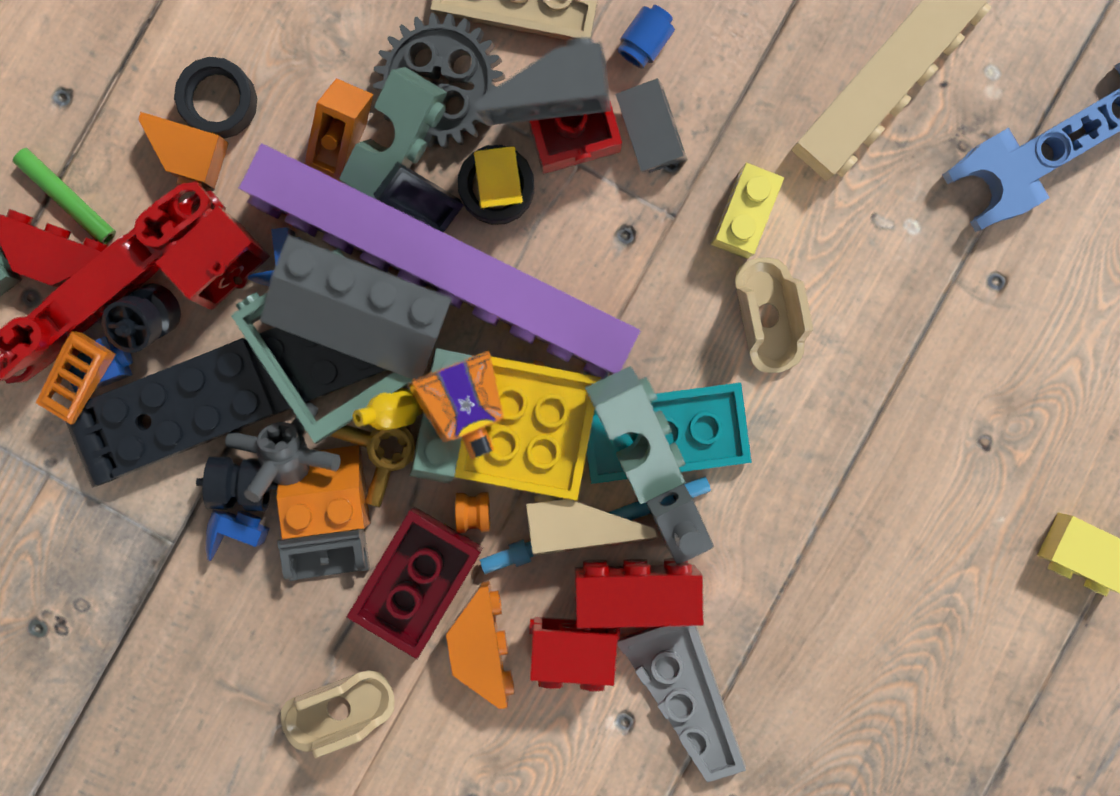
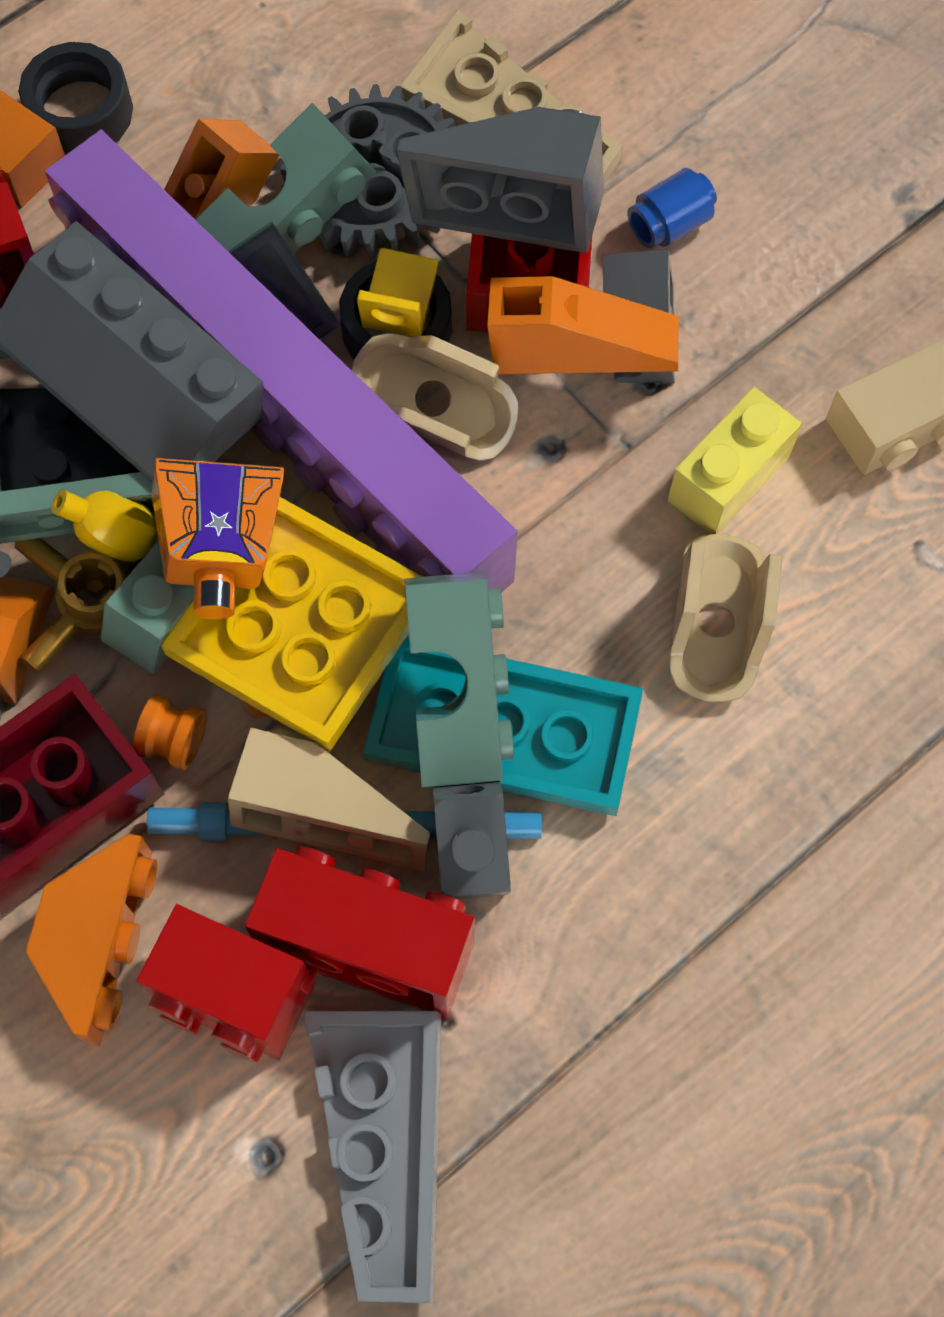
camera: 20 degrees right, 20 degrees down
(572, 245) = (480, 406): none -> tan piece
(625, 168) = (570, 328): none -> orange slope

